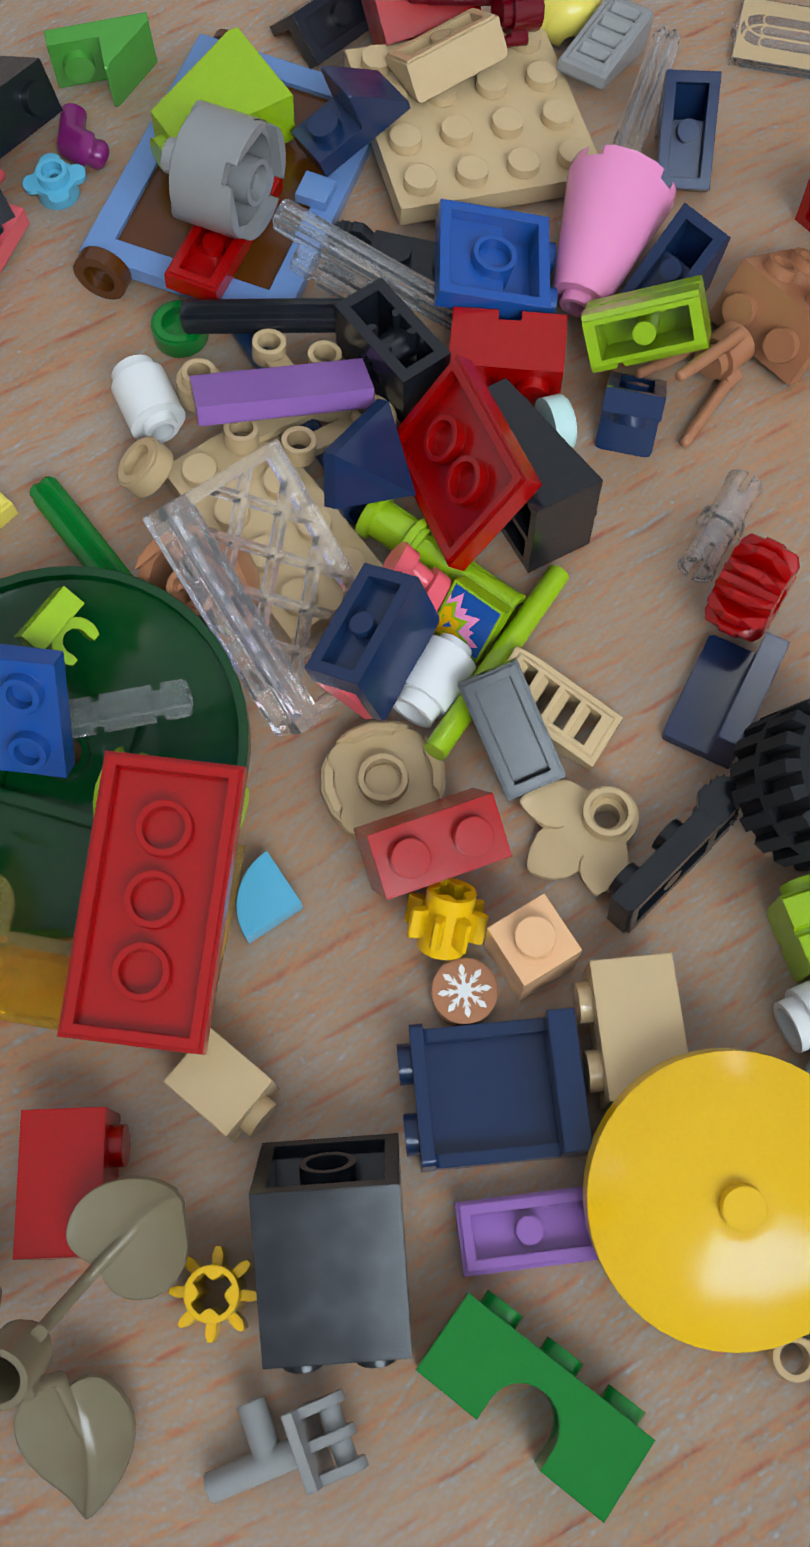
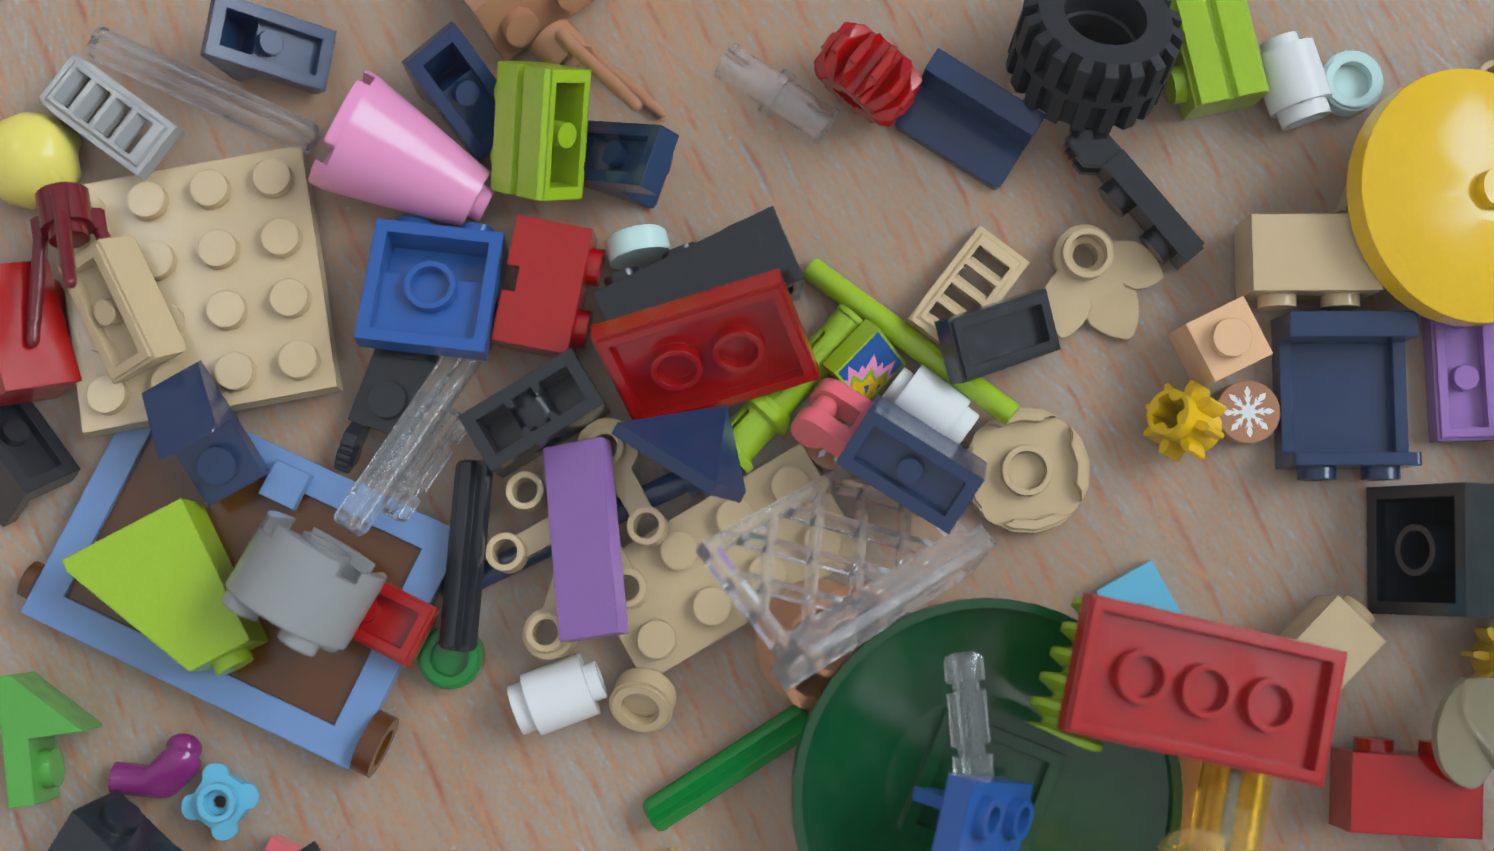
camera: 90 degrees left, 15 degrees up
(52, 622) = (875, 795): lime tile -> none
(432, 842) = (1115, 426): red brick -> none

